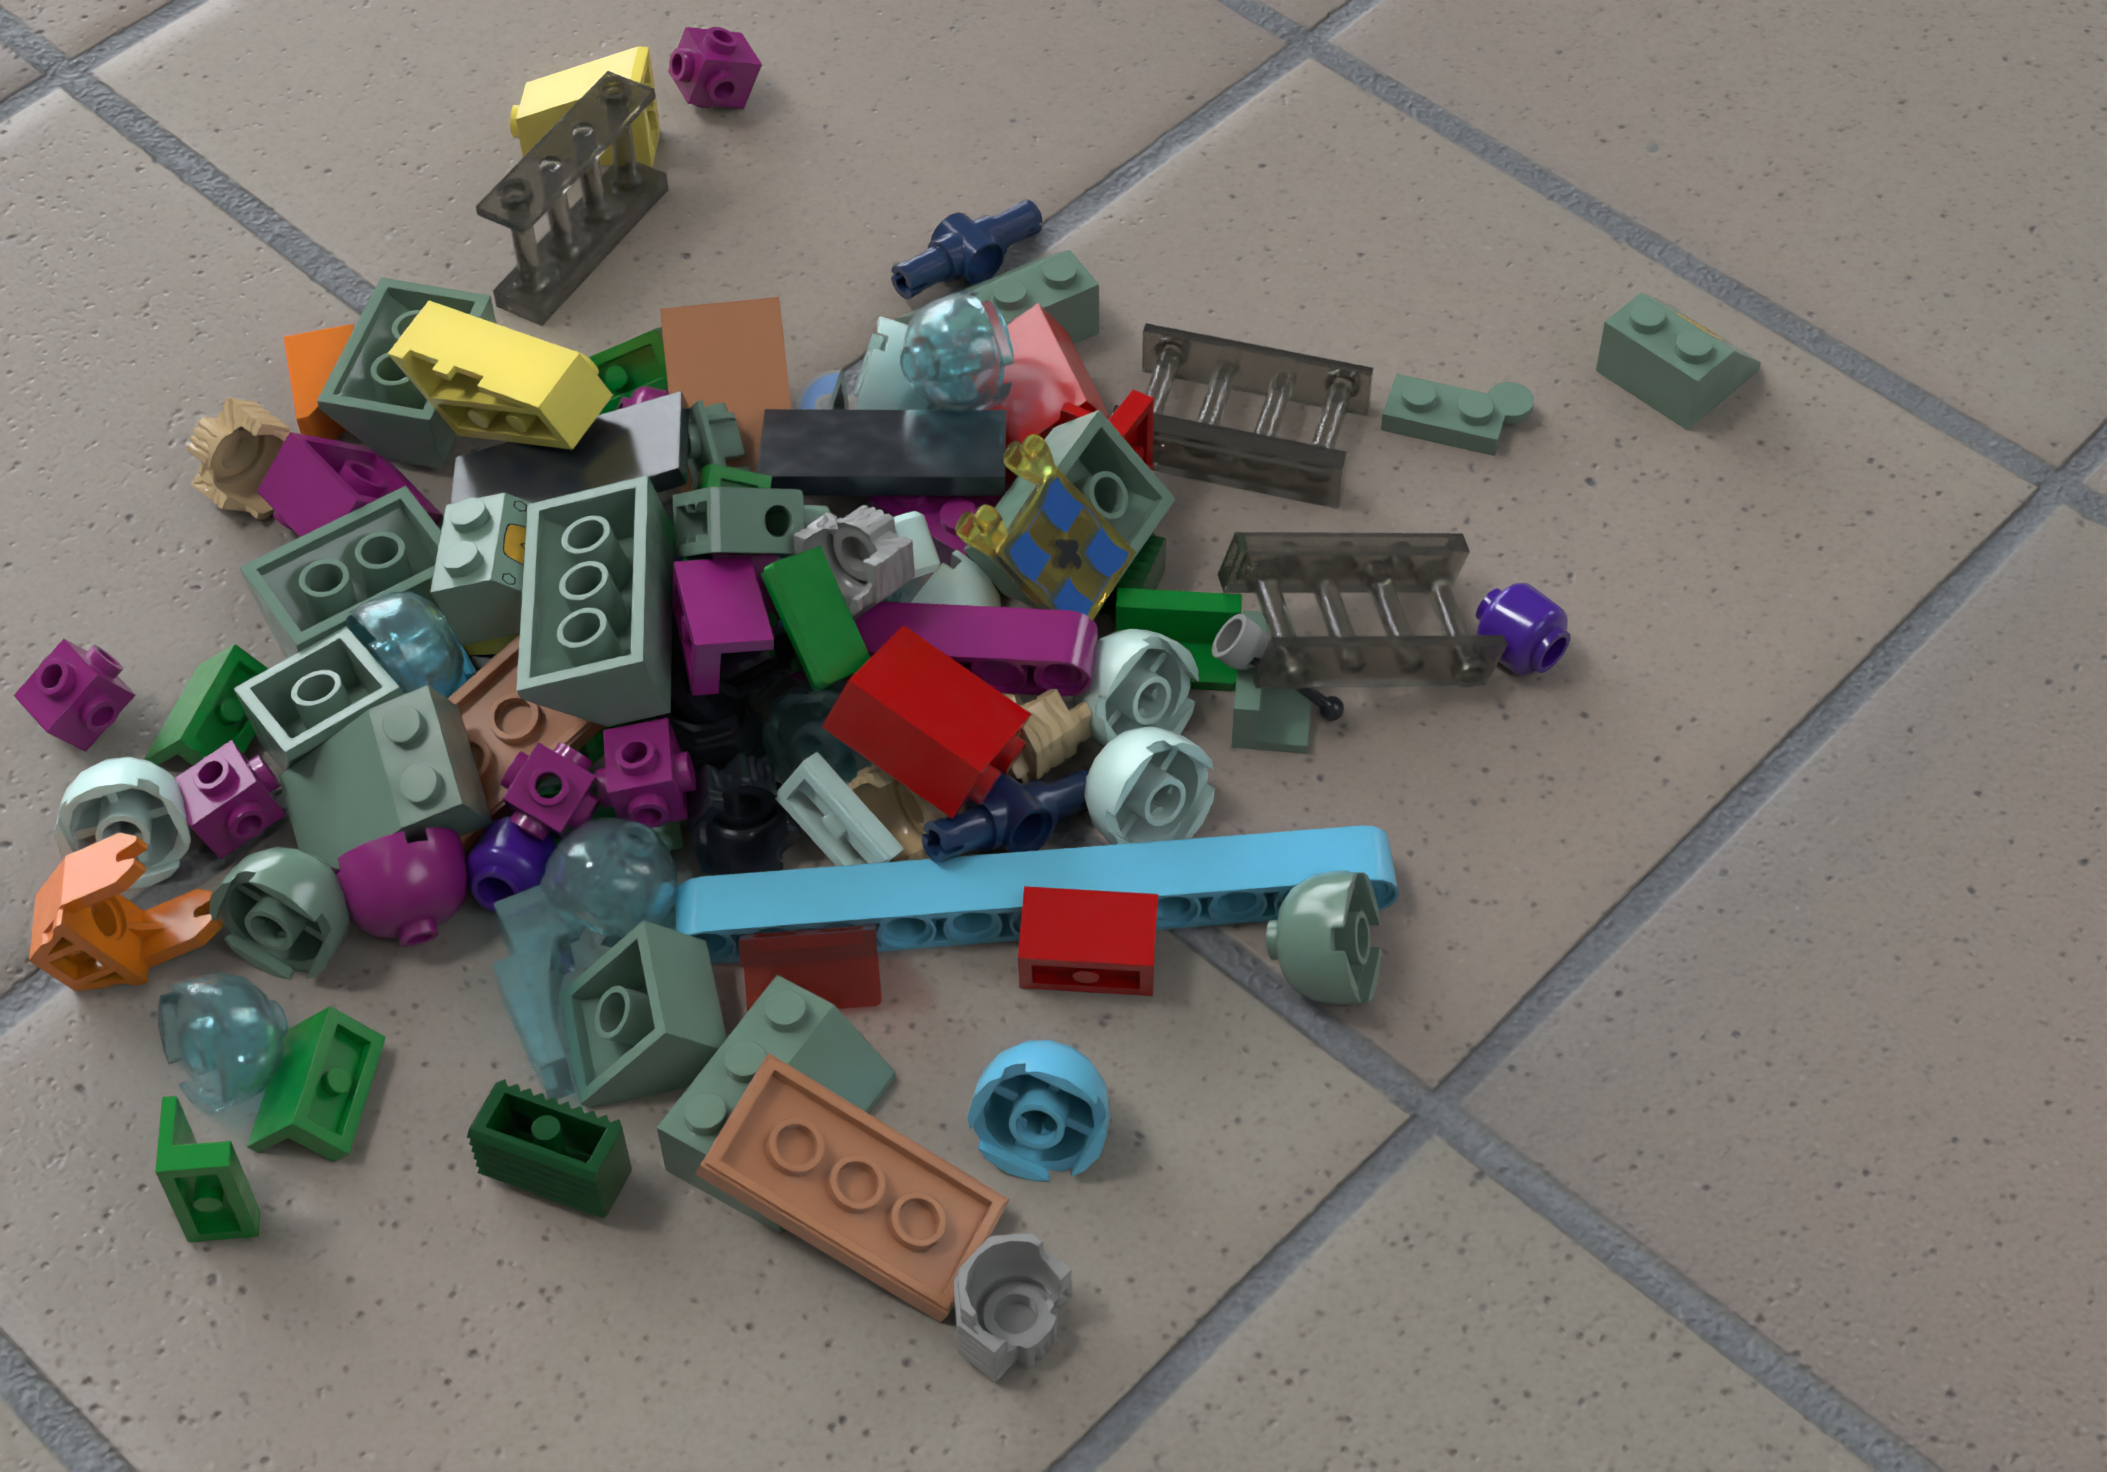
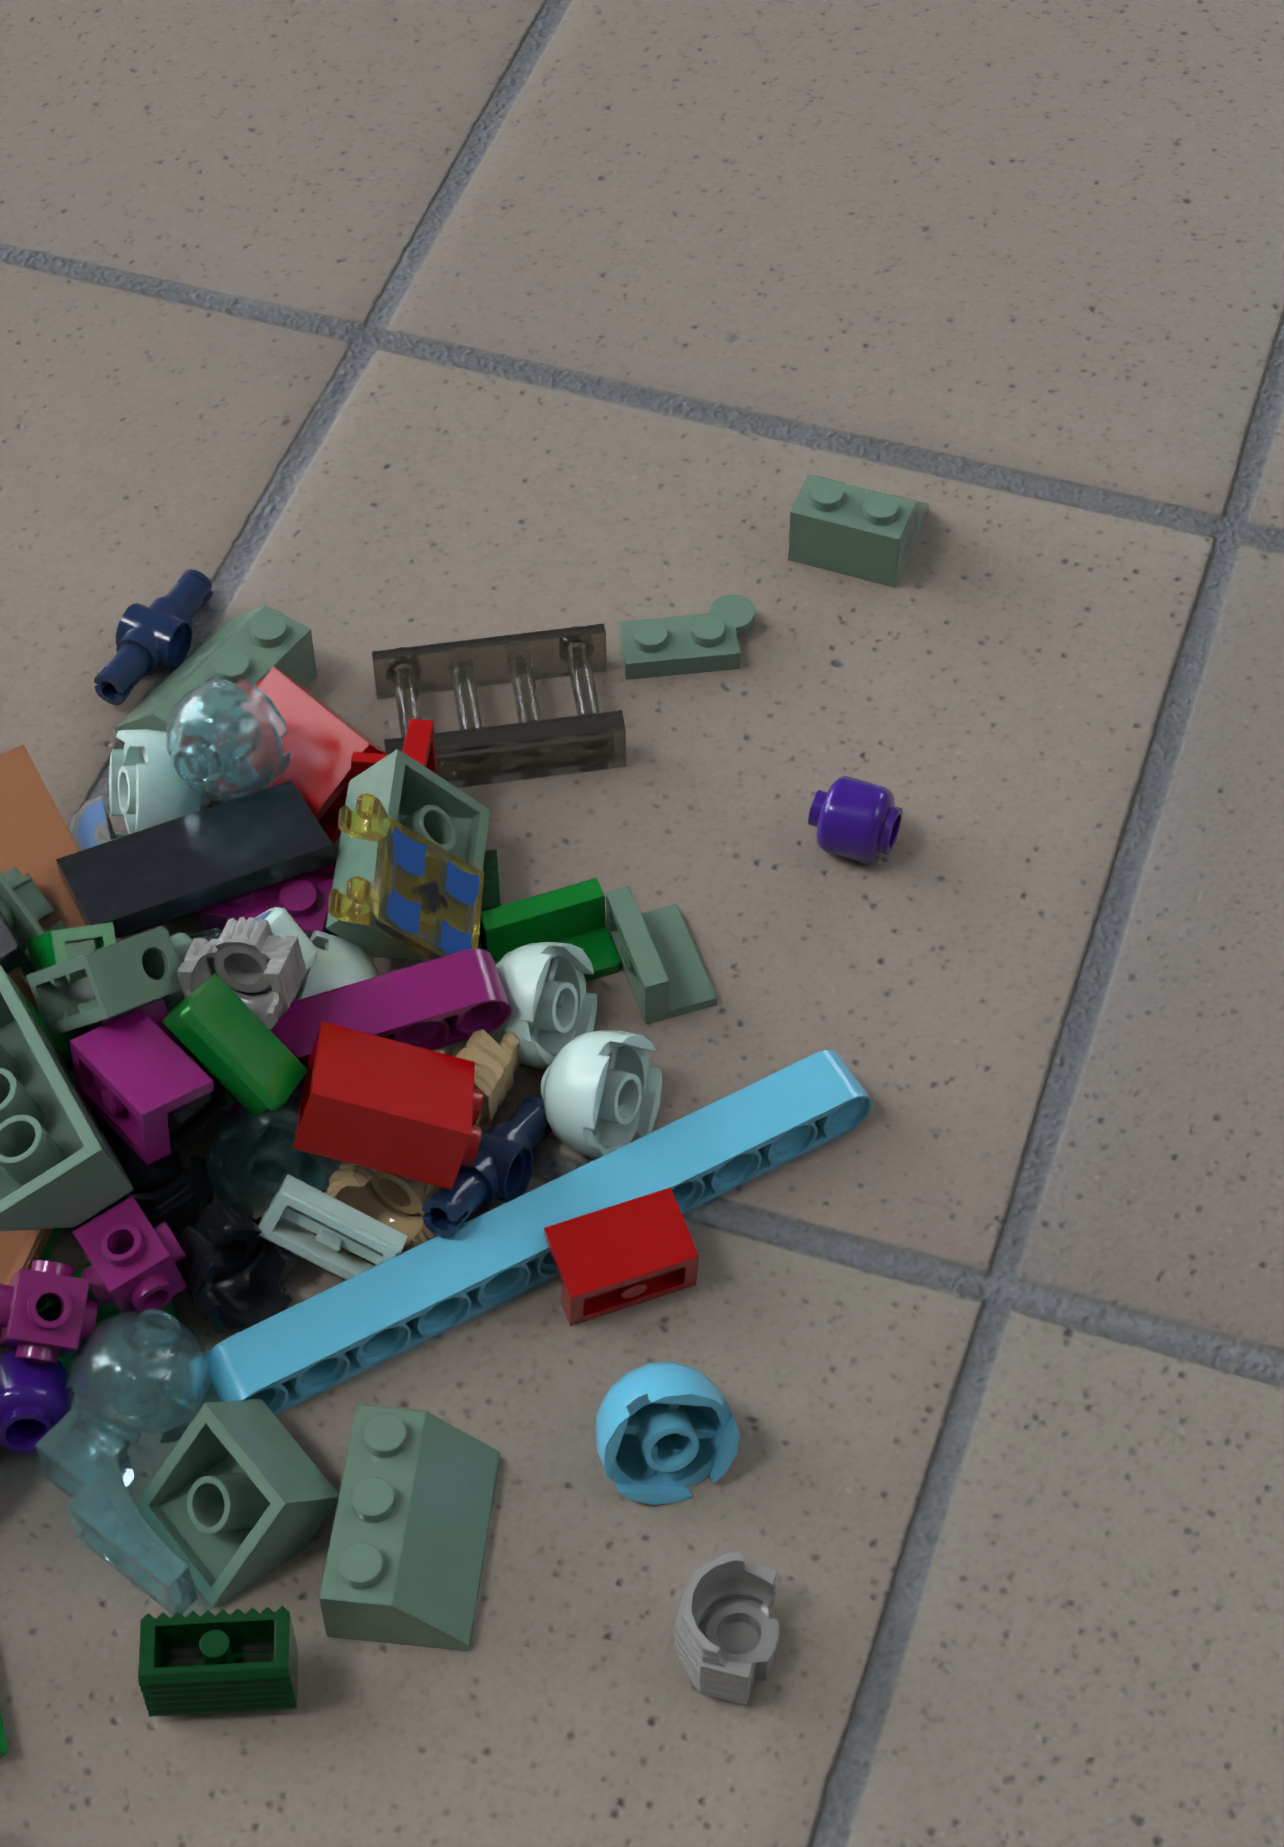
camera: 25 degrees left, 0 degrees up
(828, 962) = (385, 1372): clear red panel -> none
(852, 1186) = (529, 1578): nougat tile -> none
(1241, 647) = (640, 927): light grey hinge -> none
(1326, 938) = (835, 1170): sand green cylinder -> none
(1359, 564) = (703, 807): clear smoke fence -> none

